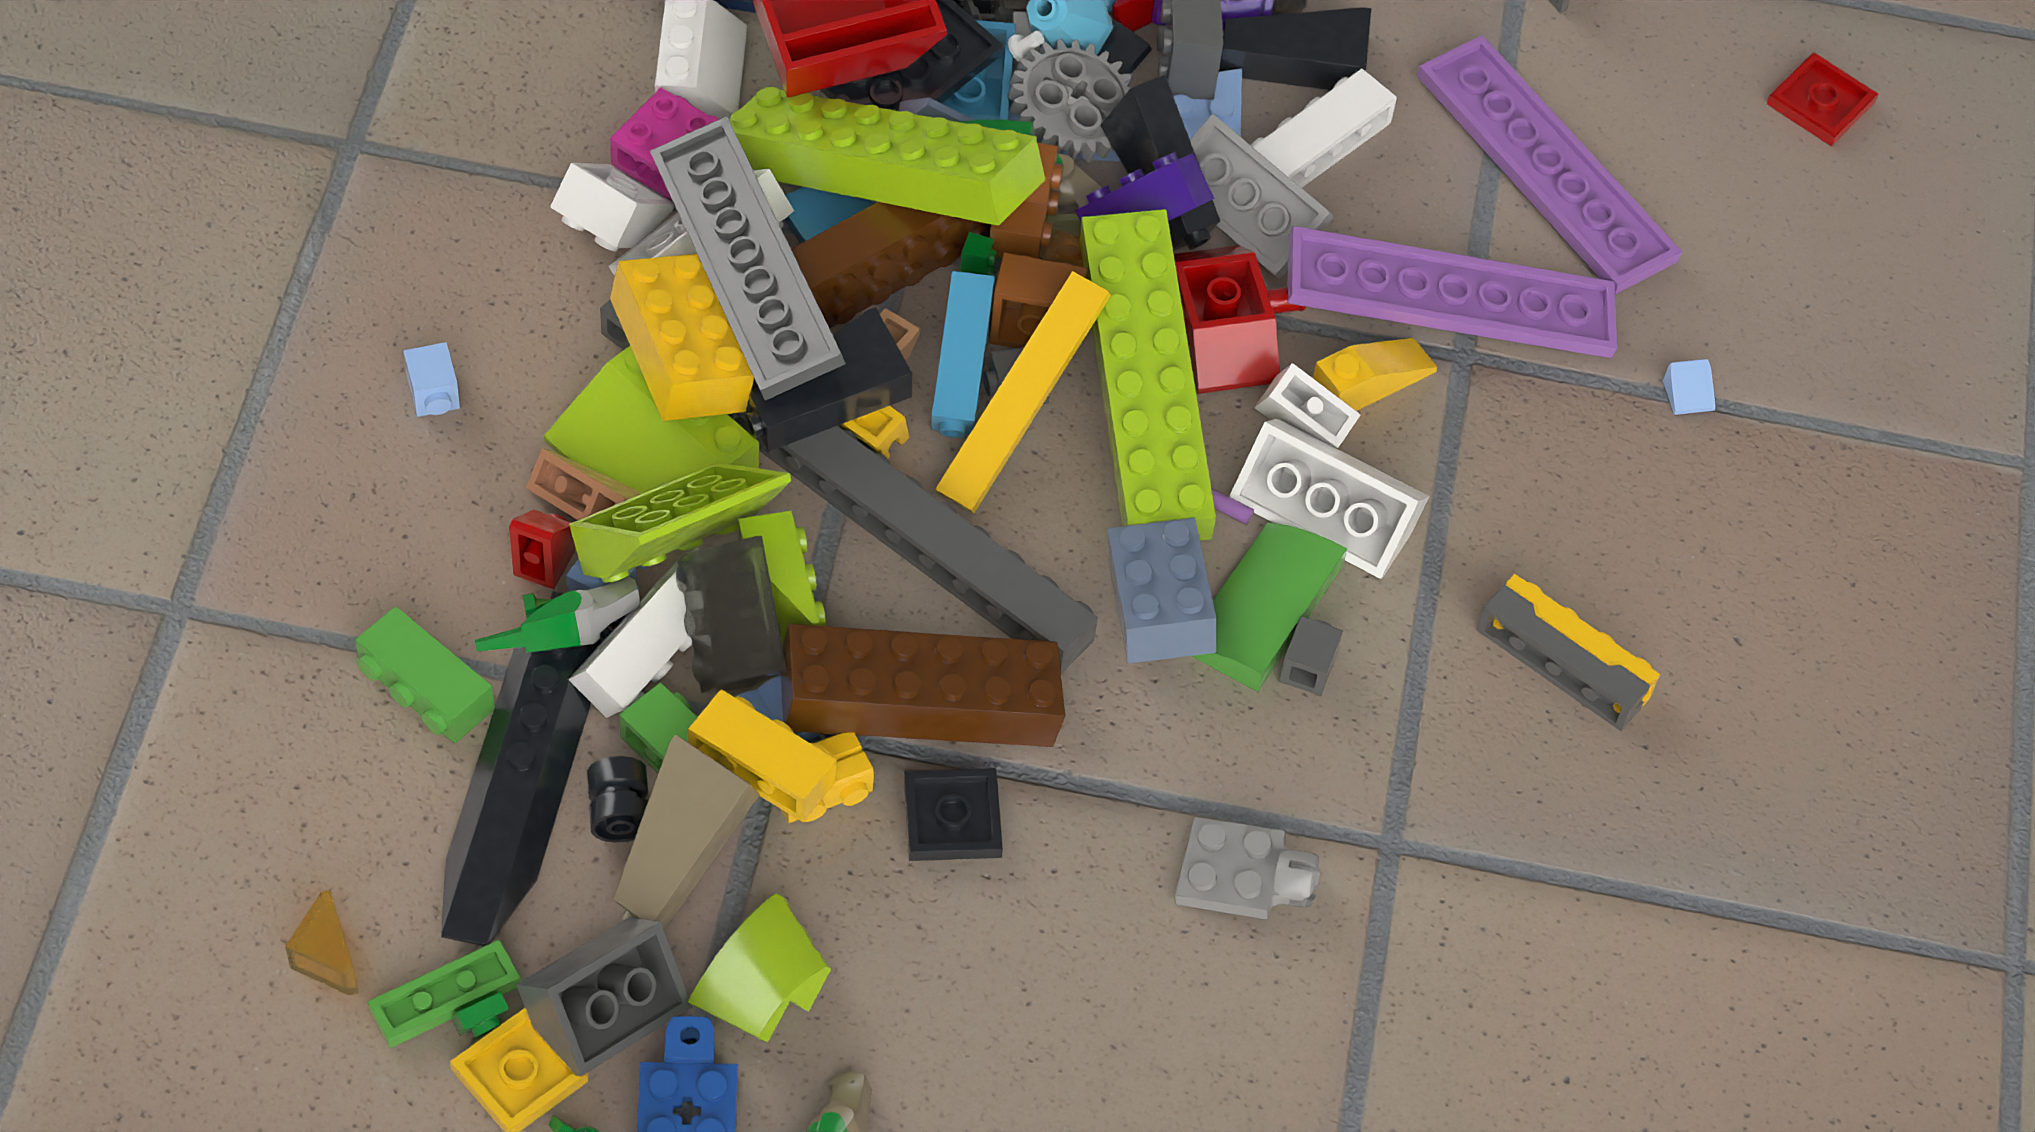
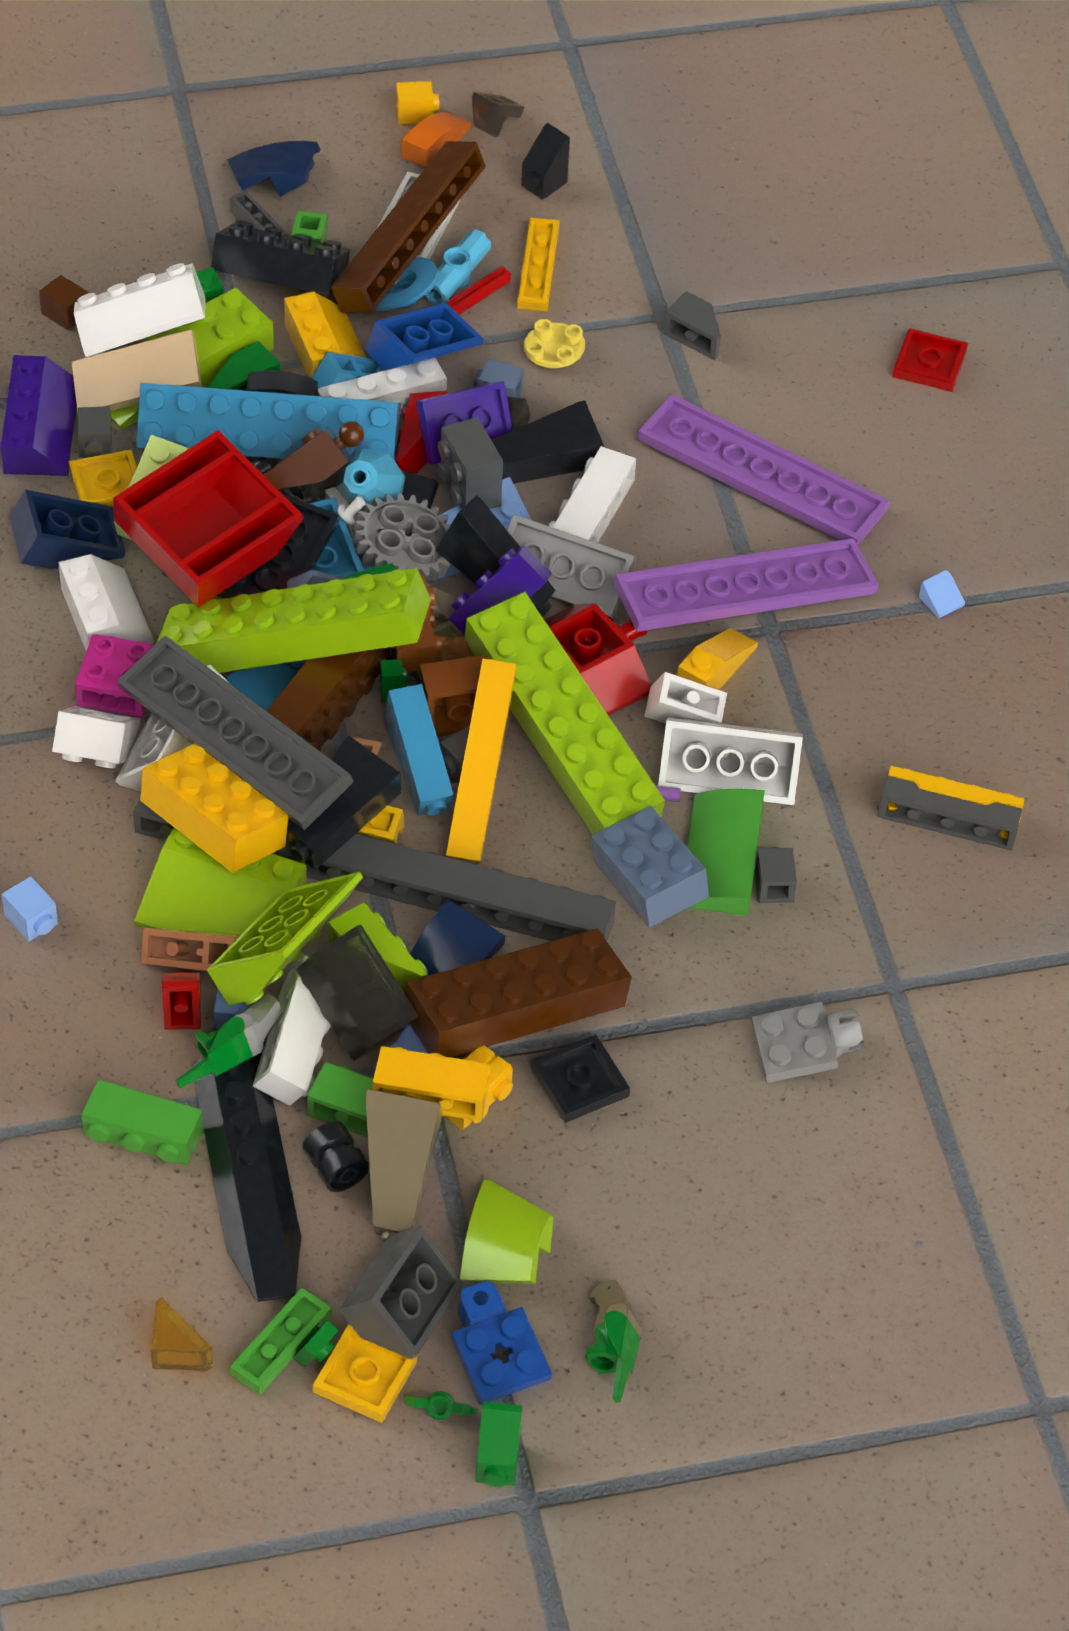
camera: 20 degrees left, 5 degrees down
(884, 596) = (455, 940): none -> dark blue slope

